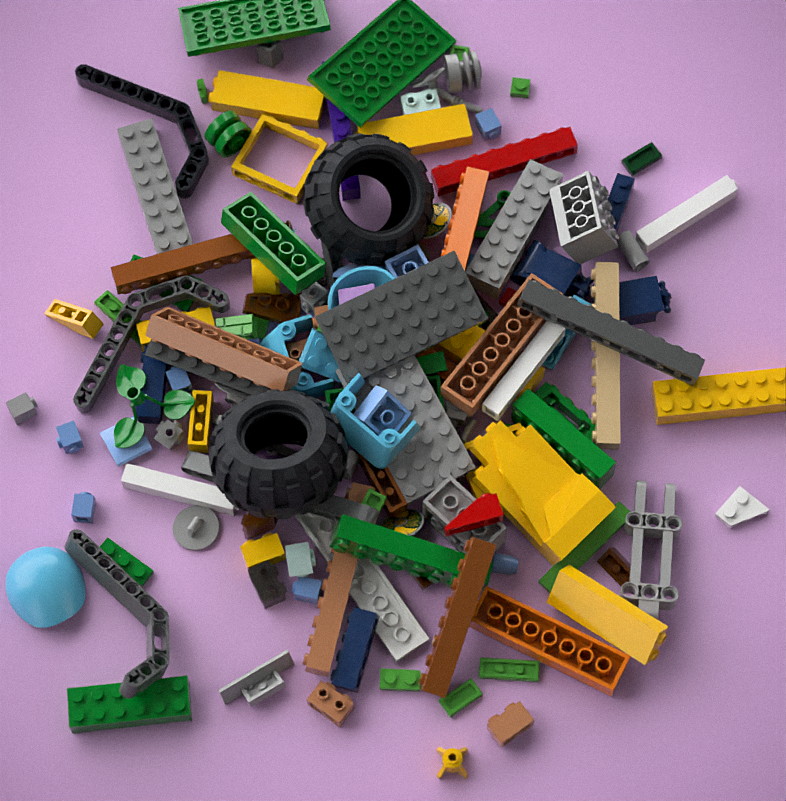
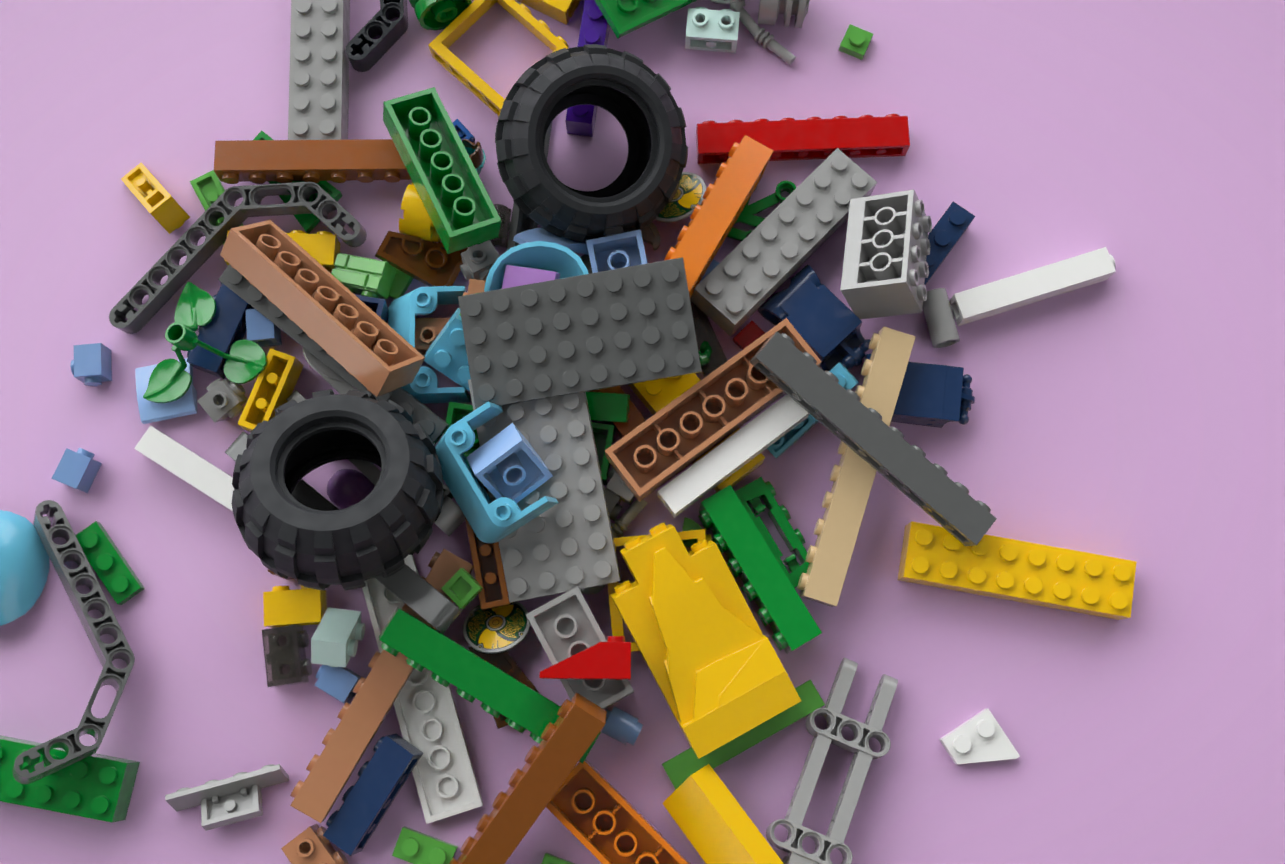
camera: 15 degrees right, 10 degrees up
(22, 407) = (43, 303): light grey brick -> none
(195, 527) = (217, 543): light grey shield -> none
(425, 130) = (704, 65): yellow brick -> none
(488, 124) = (796, 81): medium blue brick -> none
(615, 565) = (778, 774): reddish brown slope -> none
(641, 159) = (992, 189): dark green tile -> none

